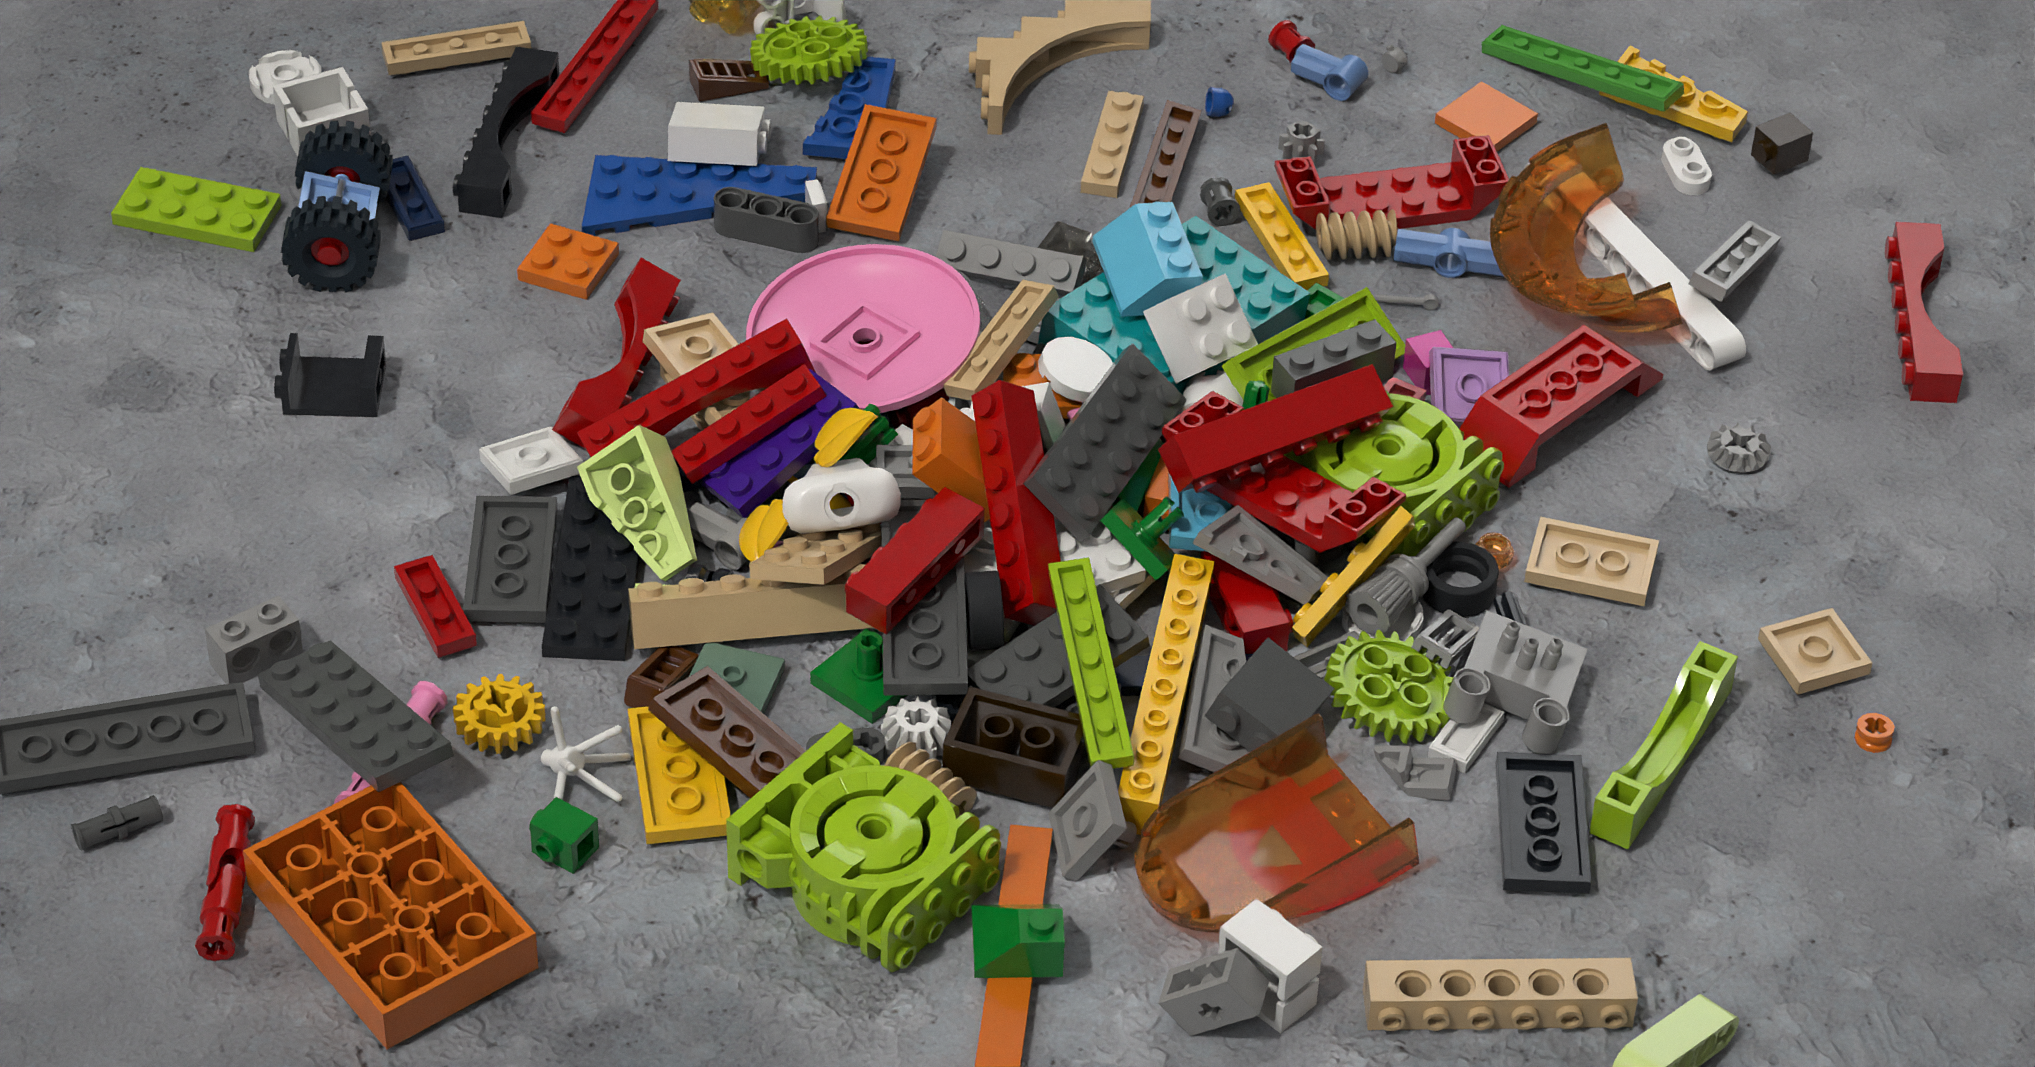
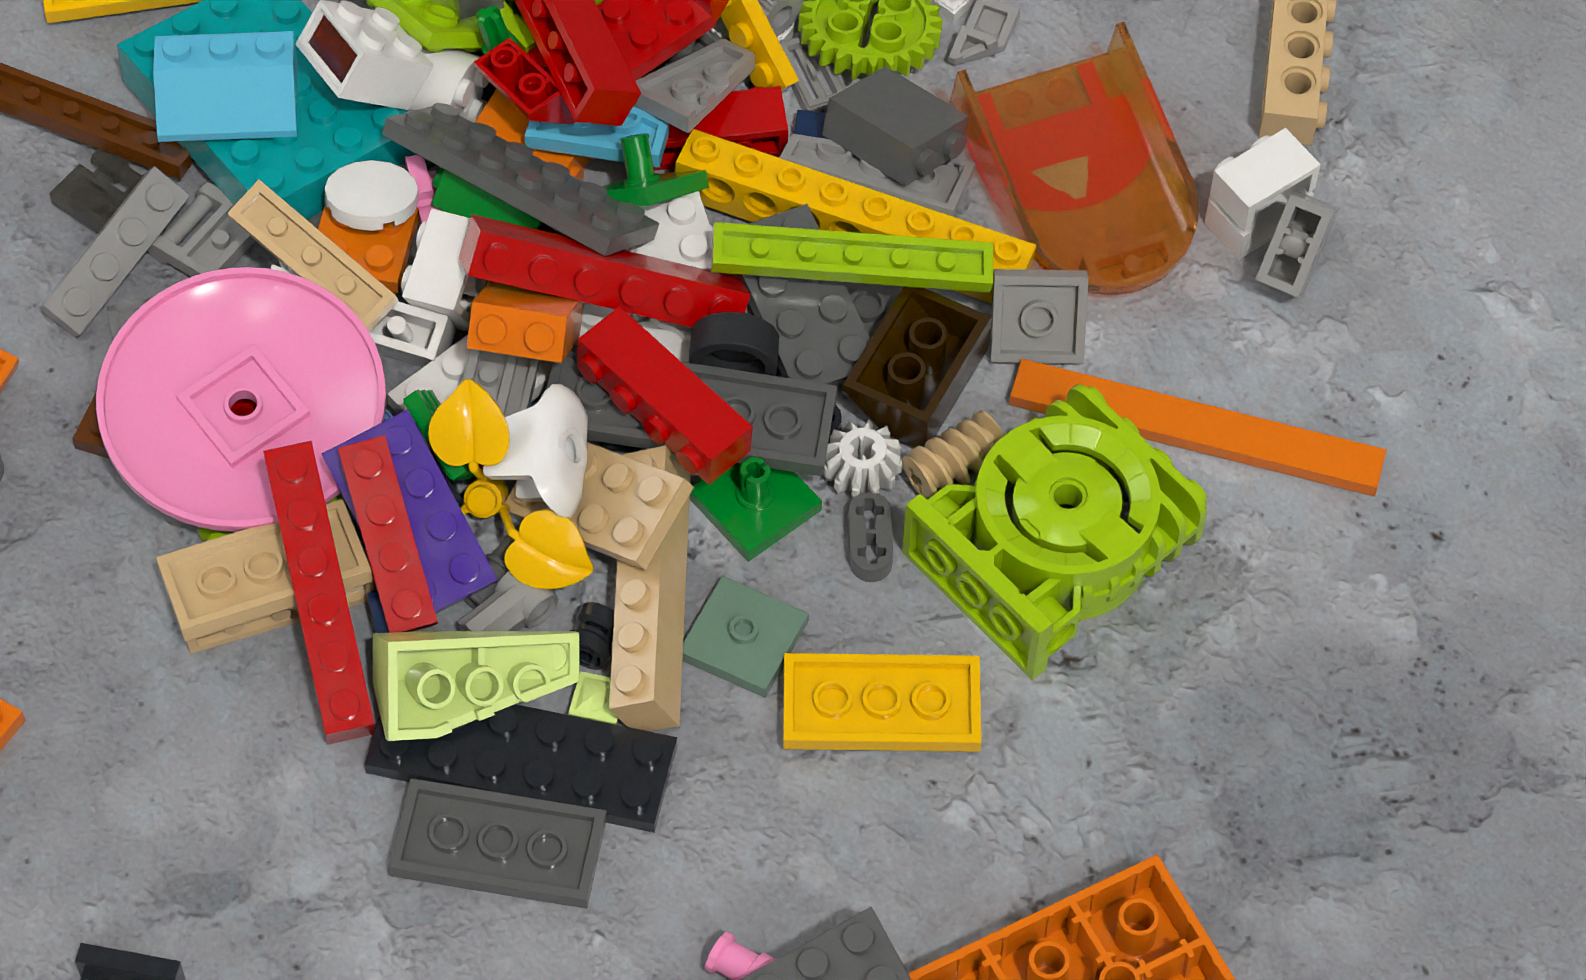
camera: 80 degrees left, 15 degrees up
(435, 606) = (563, 934): red plate -> none
(499, 713) = (758, 899): yellow gear -> none
(530, 460) = (330, 803): white plate -> none
(564, 835) = (968, 829): green brick -> none
(571, 760) = (855, 813): white plant -> none
(640, 305) = (89, 645): red arch -> none
(657, 676) = (747, 722): reddish brown slope -> none
(726, 730) = (864, 628): reddish brown plate -> none
(1018, 940) = (1186, 402): green slope -> none
(1217, 204) = (40, 26): dark grey bush -> none

